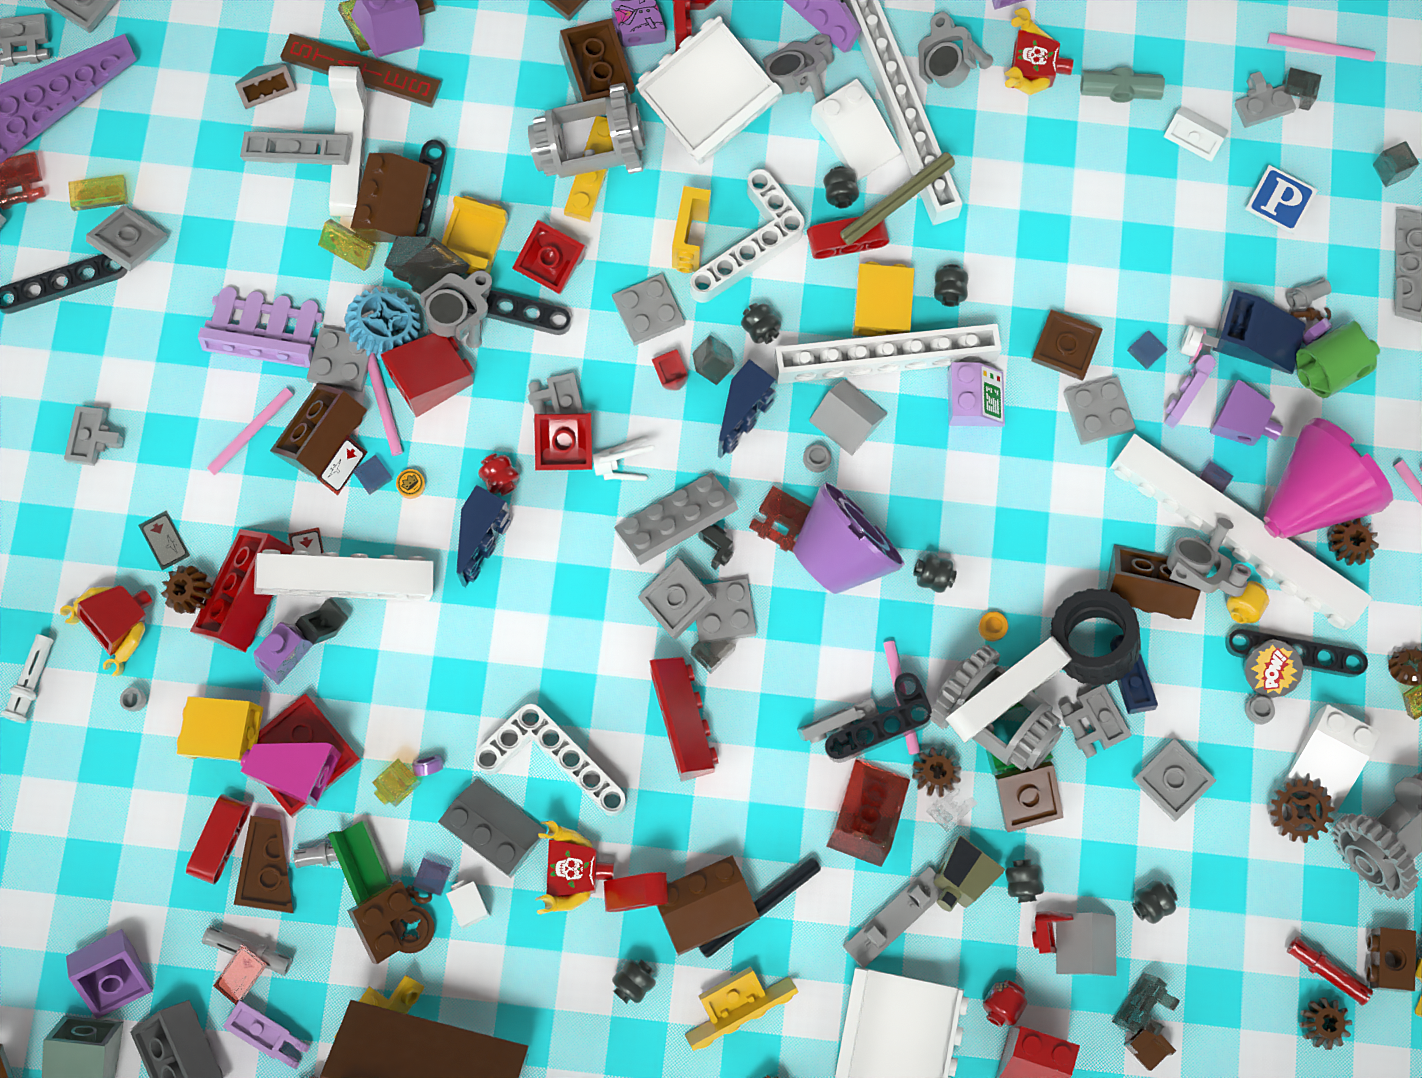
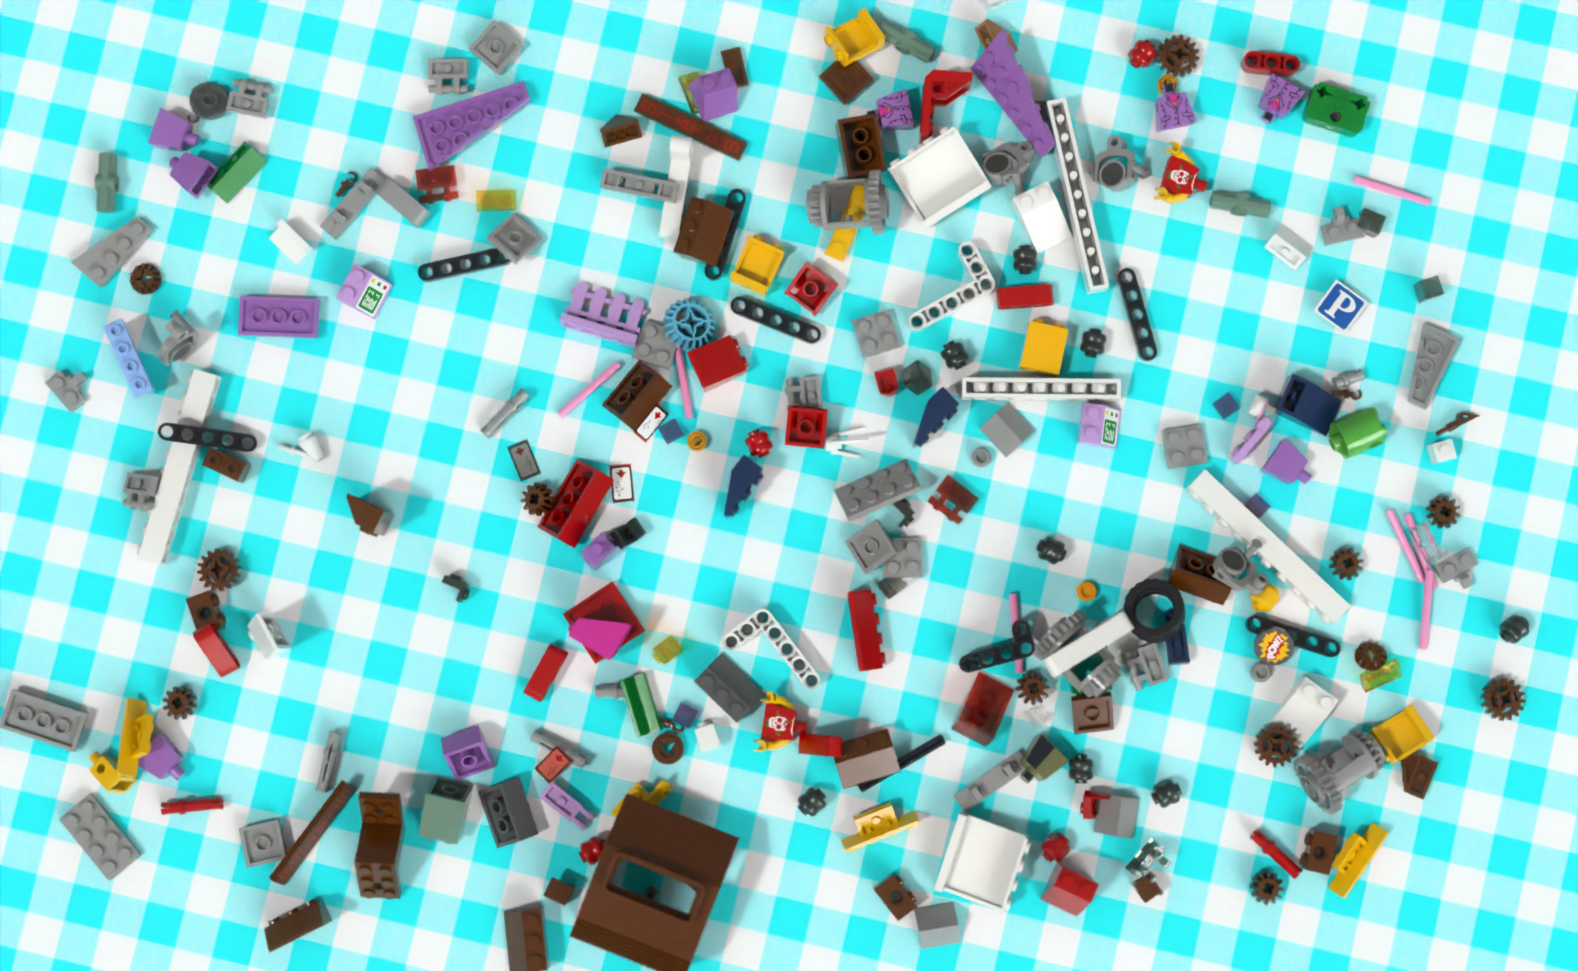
camera: 10 degrees right, 10 degrees up
(21, 696) = (424, 558): white pin -> none
(74, 722) = (455, 581): none -> pearl dark grey bracket
(89, 436) = (478, 380): light grey hinge -> none
(113, 619) = (486, 513): red torso -> none
(129, 699) = (492, 570): light grey hinge -> none
(134, 472) = (504, 414): none -> light grey pin
(218, 728) = (552, 600): yellow panel -> none
(263, 869) = (574, 698): reddish brown wing -> none
(343, 576) = (646, 506): white brick -> none
(347, 244) = (669, 261): clear yellow plate -> none
(373, 920) = (645, 741): reddish brown plate -> none
(422, 262) = (722, 286): clear smoke slope -> none
(427, 765) = (689, 640): medium lavender tile -> none
(448, 311) = (736, 322): light grey piece -> none
(693, 206) = (916, 262): yellow panel -> none
(840, 720) = (970, 644): light grey hinge -> none
(842, 545) = (990, 525): medium lavender cone -> none
(897, 198) = (1063, 277): olive axle -> none
(1004, 256) = (1138, 304): none -> black beam
(1066, 345) = (1168, 396): reddish brown plate -> none
(1174, 780) = (1193, 713): light grey plate -> none
(1317, 331) = (1348, 408): medium lavender tile -> none
(1325, 483) = (1328, 526): dark pink cone -> none

